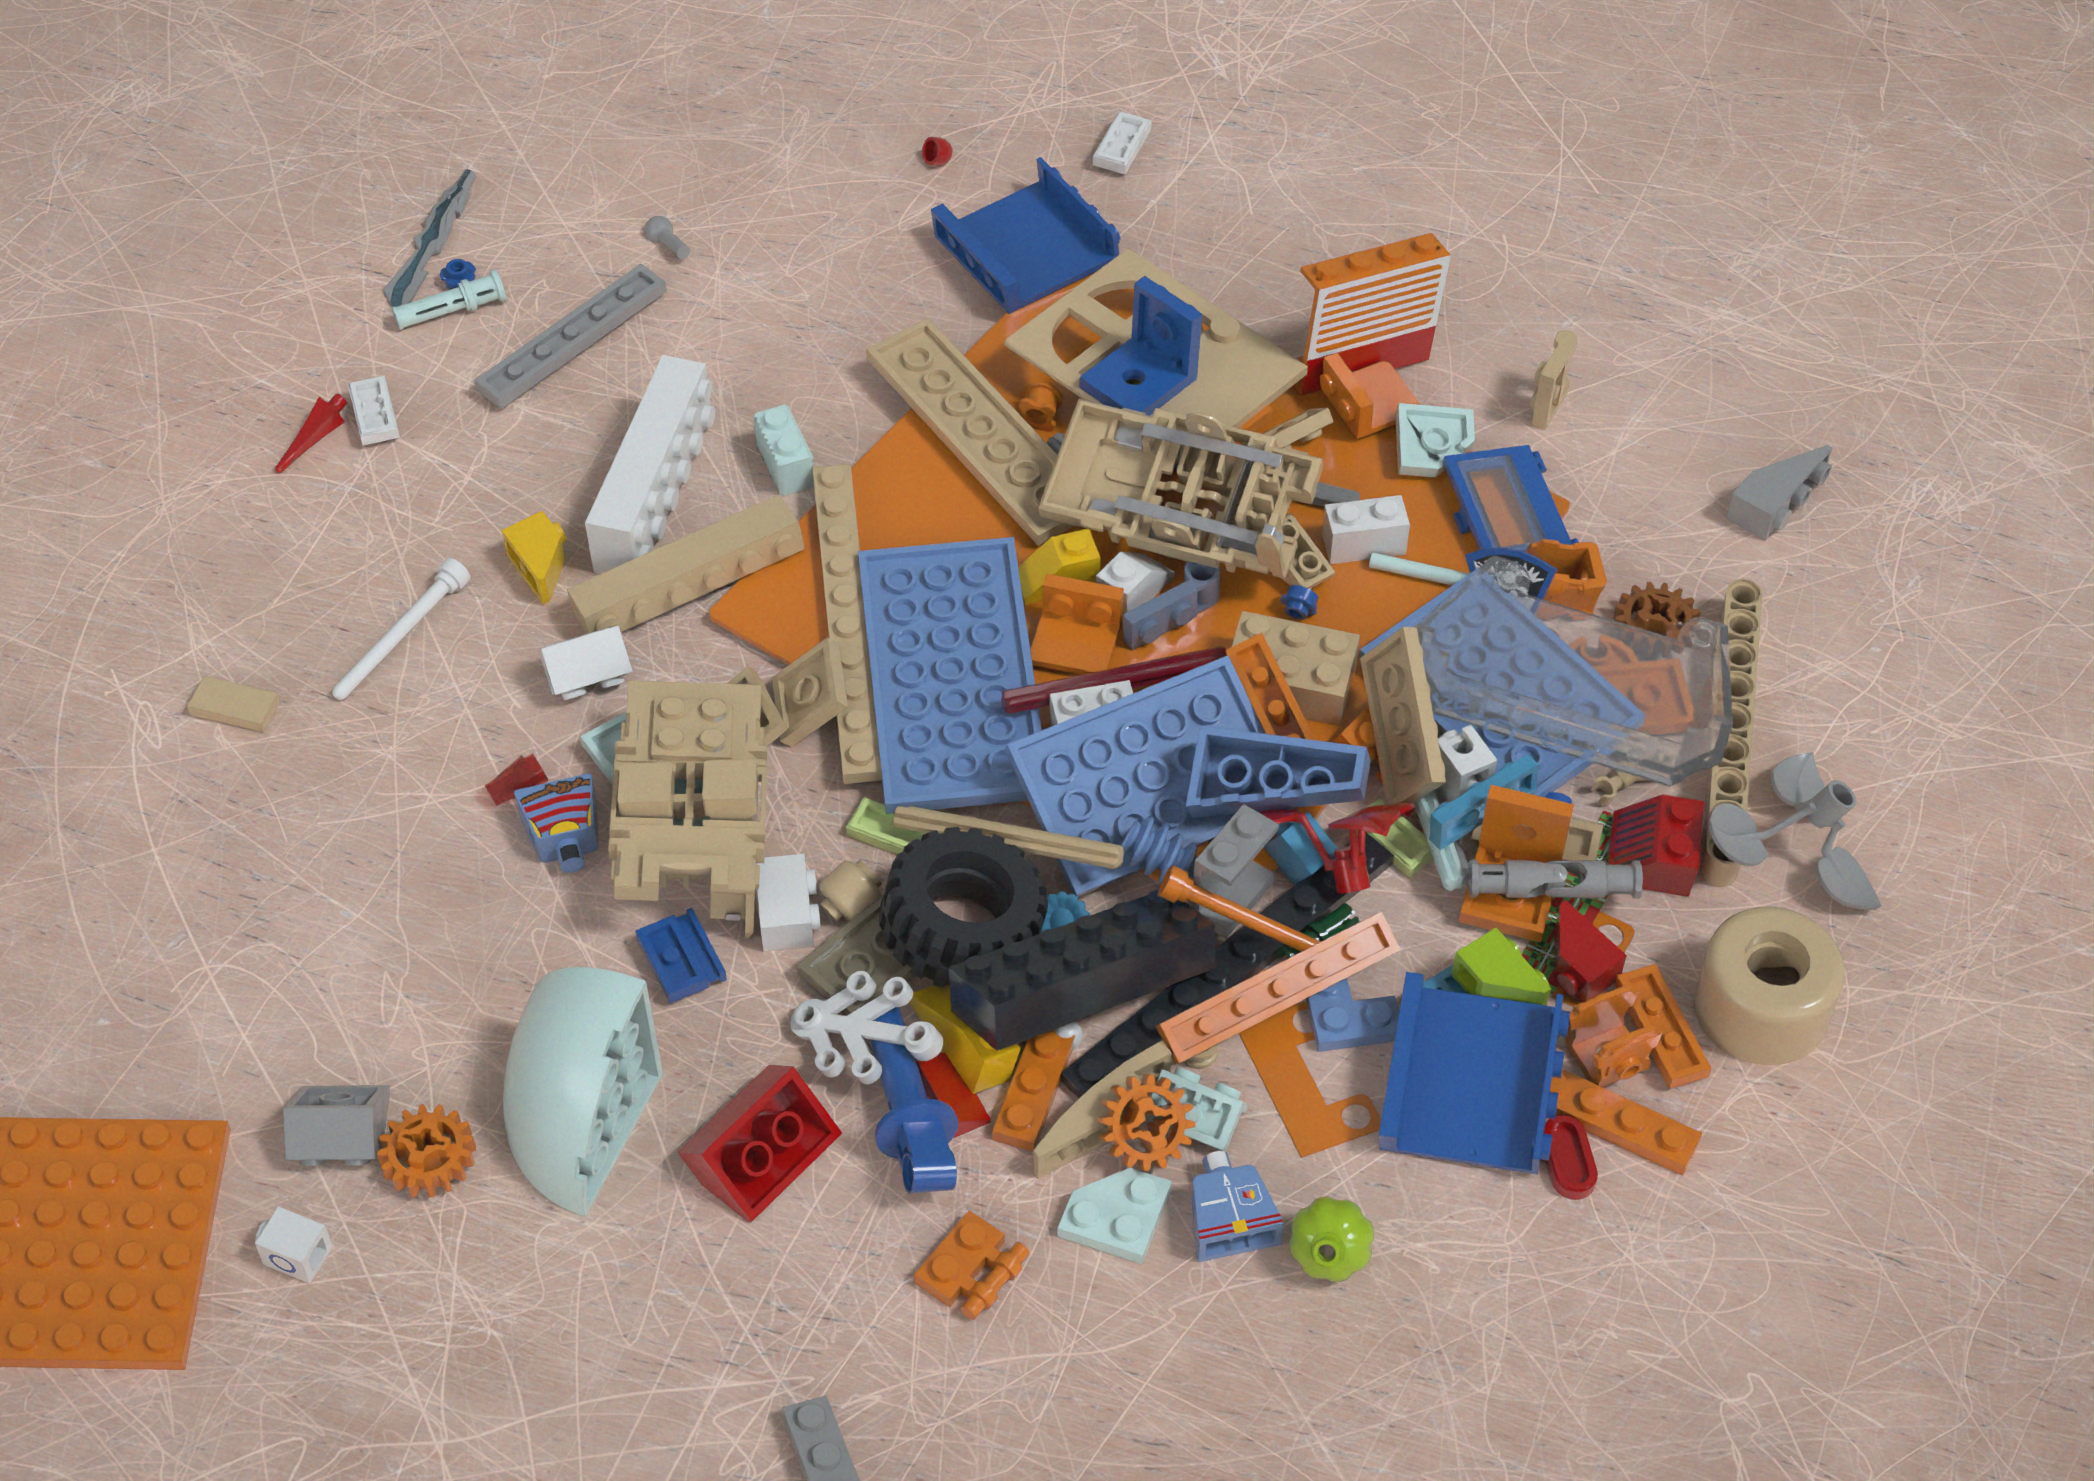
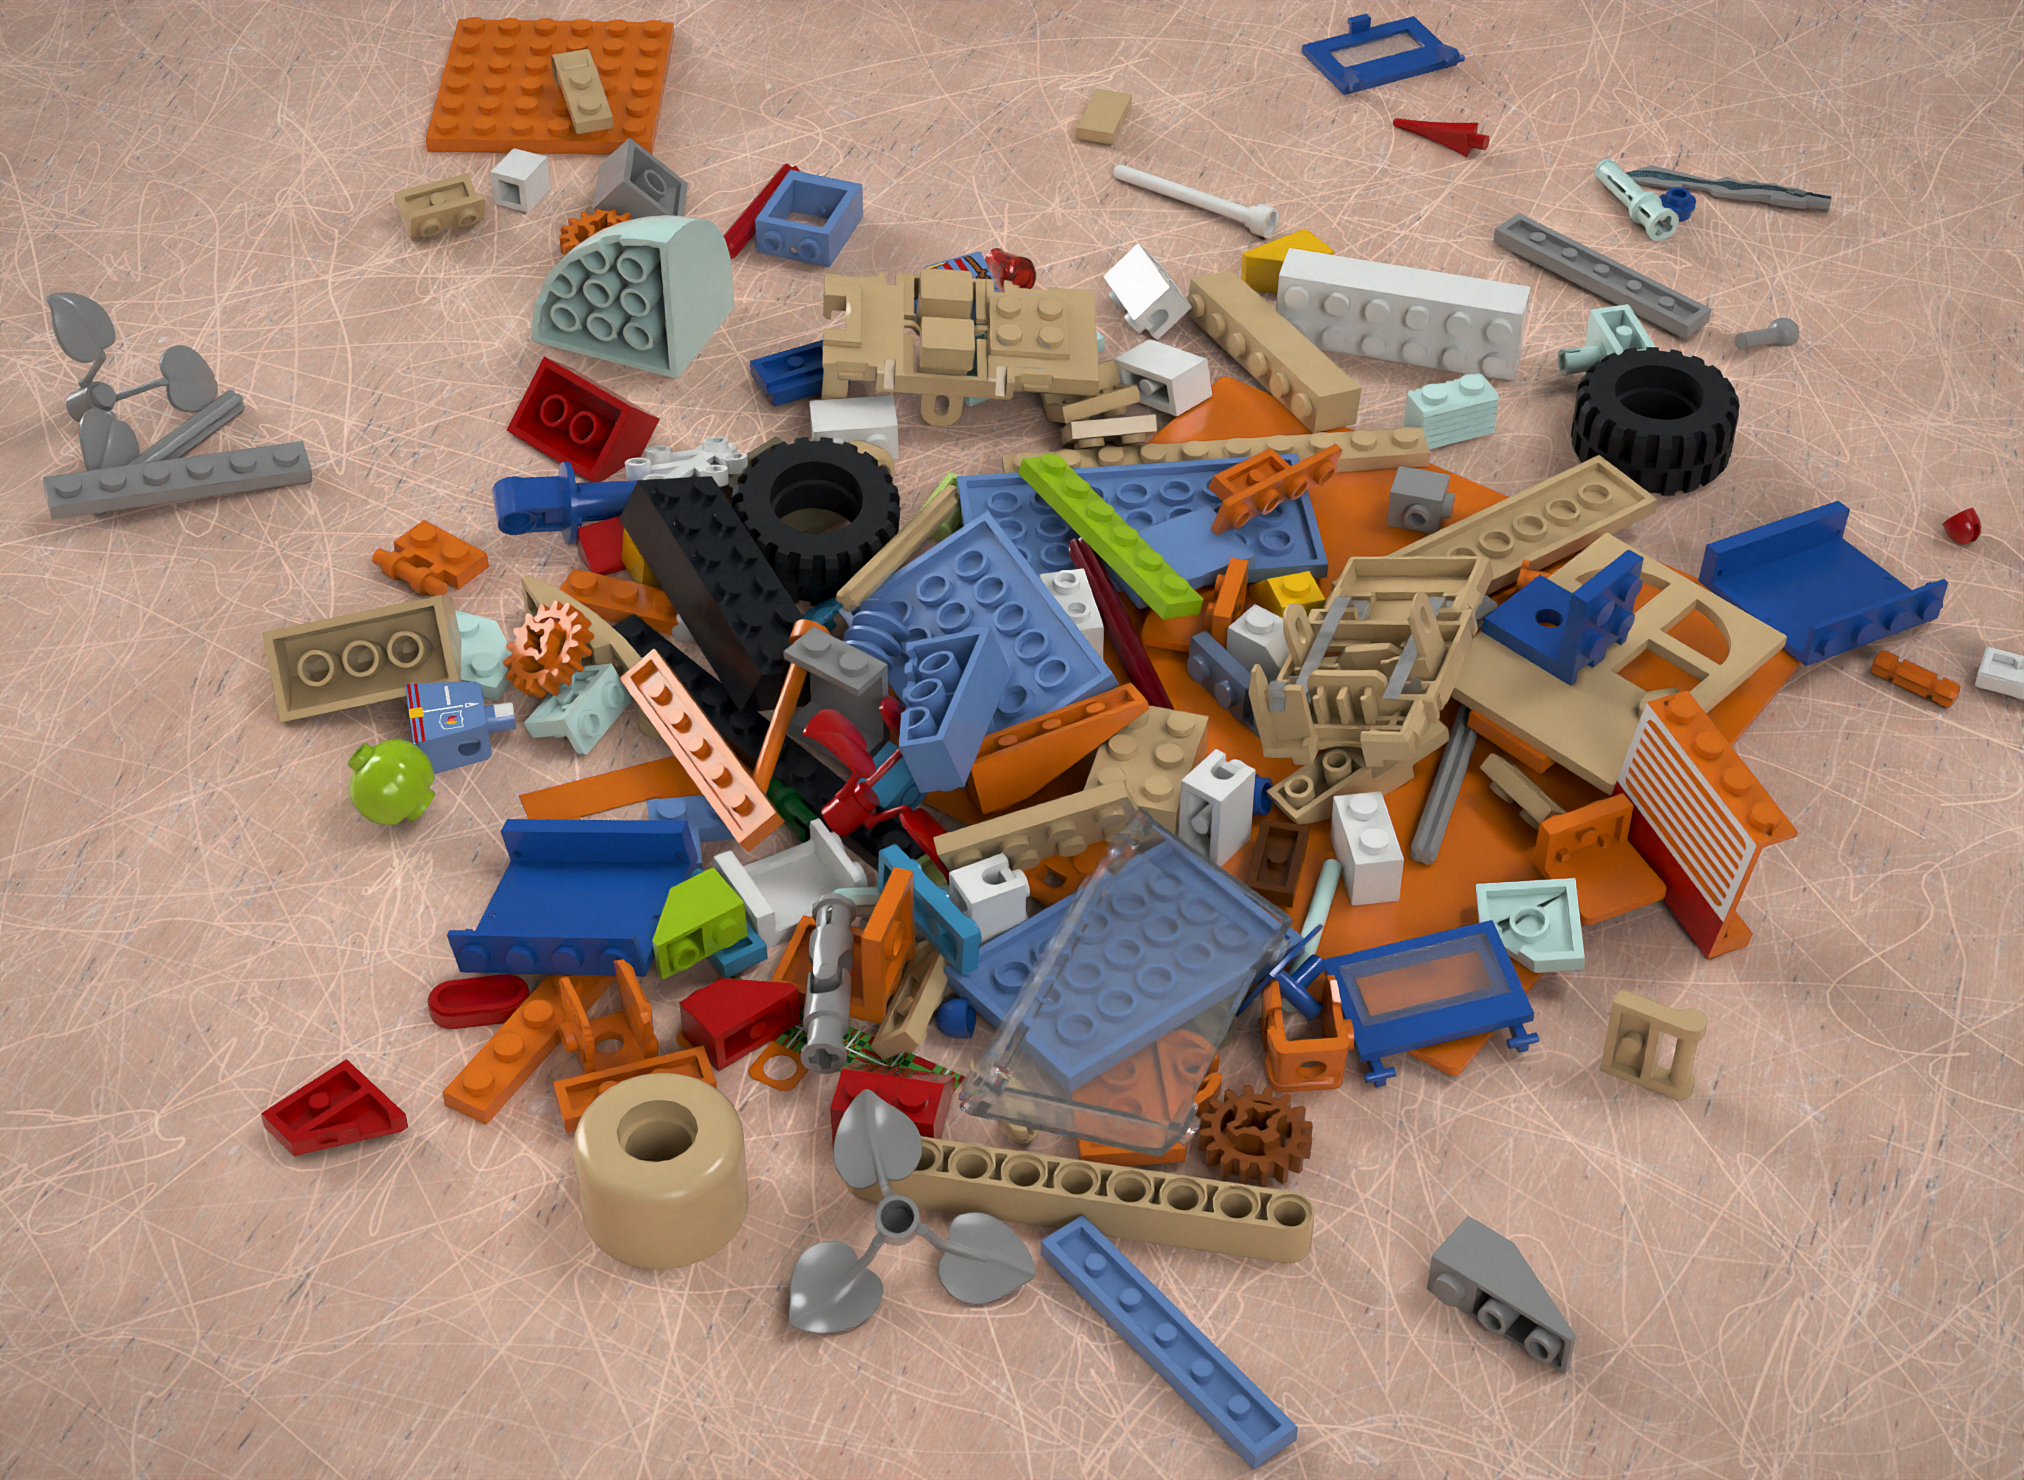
camera: 90 degrees right, 10 degrees down
(136, 1180) = (582, 90): none -> tan plate
(153, 474) = (1379, 54): none -> blue piece
(338, 1324) = (439, 206): none -> tan bracket
(364, 951) = (816, 196): none -> medium blue window
(373, 410) = (1474, 162): white plate -> none
(373, 1010) = (744, 227): none -> red axle
(708, 328) = (1608, 332): none -> light aqua brick
(723, 647) = (1165, 376): none -> white brick
(810, 278) = (1656, 418): none -> black tyre
(922, 473) = (1419, 500): none -> light grey brick
(934, 560) = (1265, 482): none -> orange bracket
(1008, 672) = (1111, 537): none -> lime plate
(1015, 636) = (1190, 550): none -> medium blue tile
(1123, 201) = (1915, 678): none -> orange axle
(1152, 1286) = (362, 657): none -> tan slope
(1347, 604) = (1219, 802): none -> white brick
(1378, 590) = (1278, 861): none -> reddish brown plate
(1419, 920) = (789, 882): none -> white panel
(1719, 1248) = (333, 1112): none -> red wing
(1849, 681) = (1169, 1342): none -> medium blue plate

